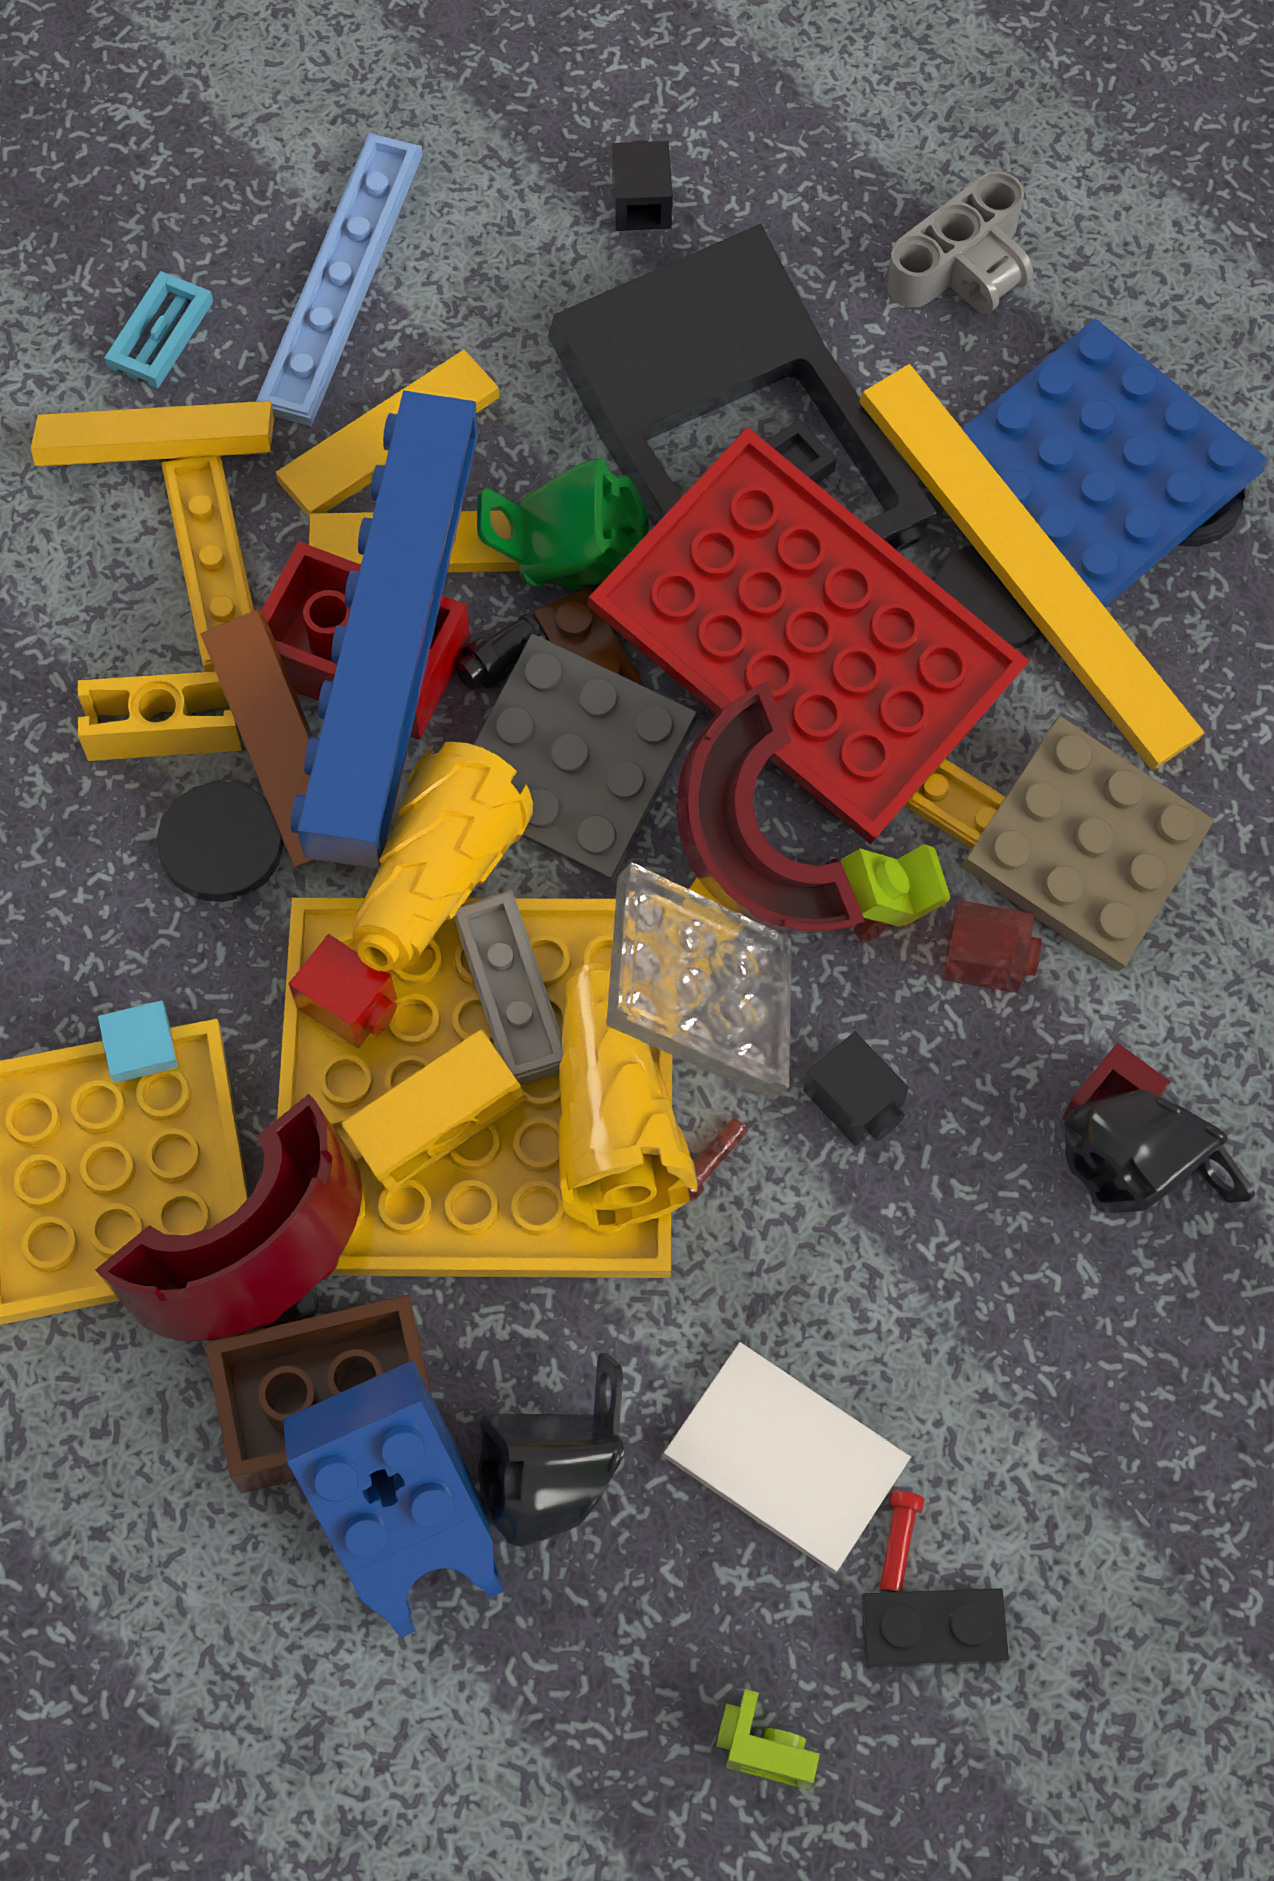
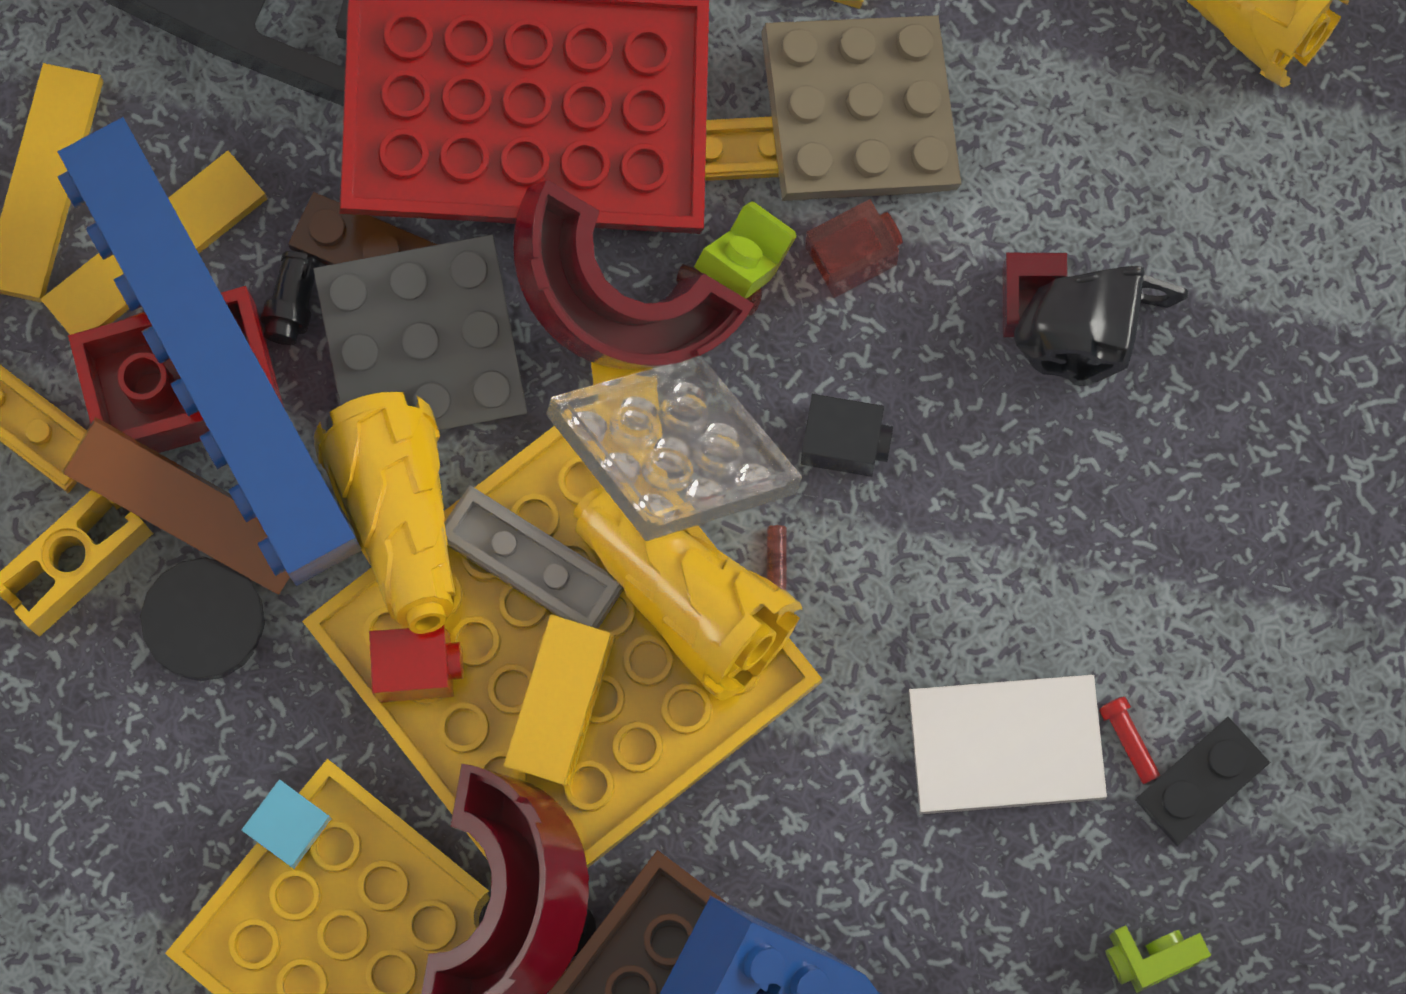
camera: 35 degrees left, 10 degrees up
(550, 1468) = (854, 886): black piece -> none
(570, 527) = (266, 155): green piece -> none

